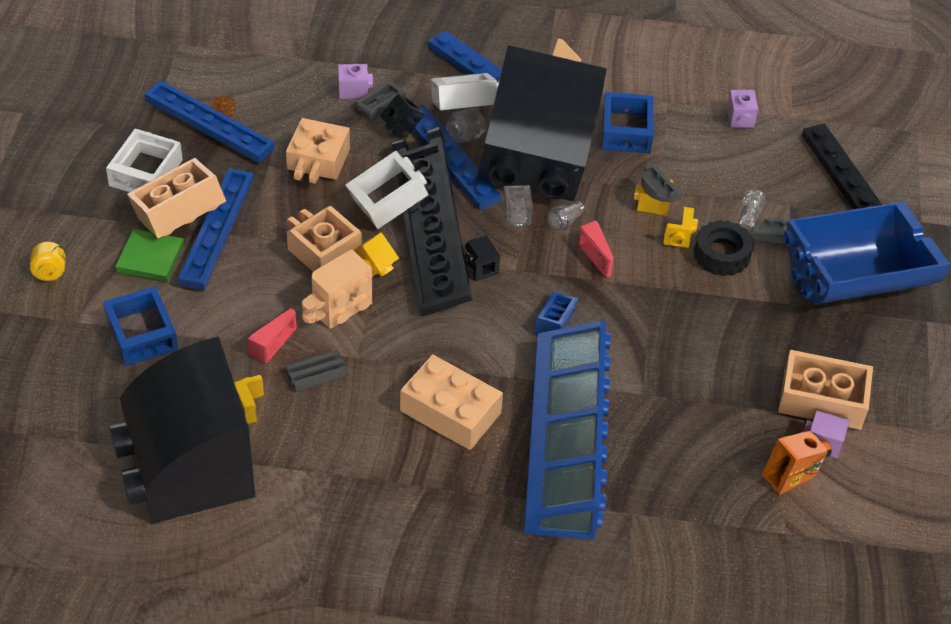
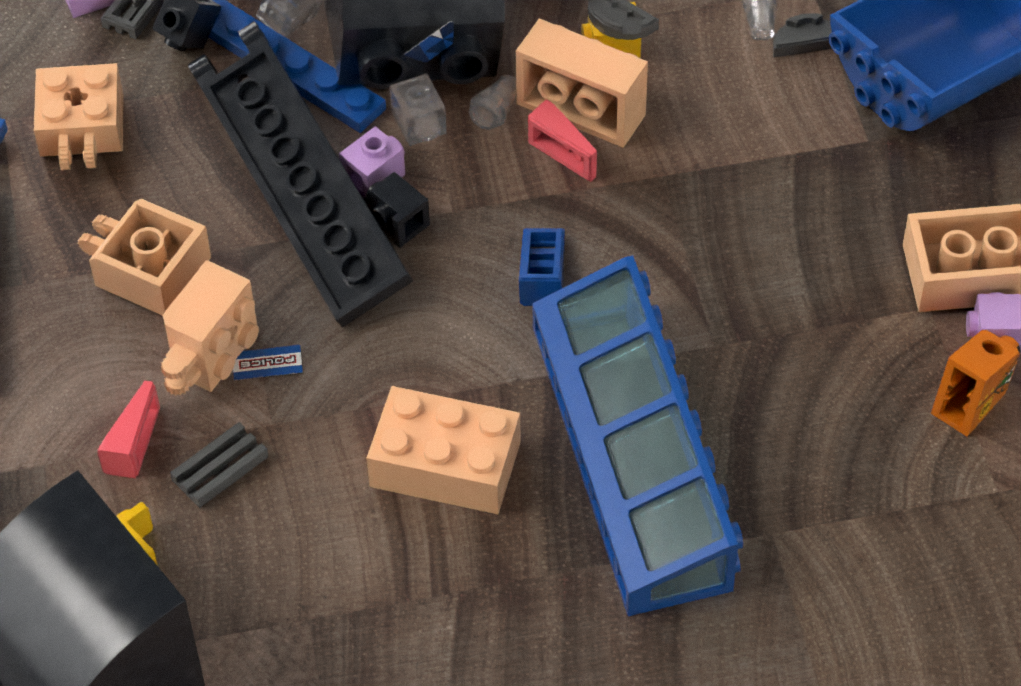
camera: 15 degrees left, 5 degrees up
(370, 322) = (268, 362): none -> sticker
(377, 254) = (240, 251): yellow brick -> none
(395, 202) = (235, 162): white window -> none
(478, 224) = (373, 159): none -> lavender brick
(537, 168) = (433, 44): none -> sticker
(623, 216) = (585, 79): none -> light nougat brick
(680, 234) = (676, 80): yellow bracket -> none
(723, 263) = (740, 108): black tyre -> none

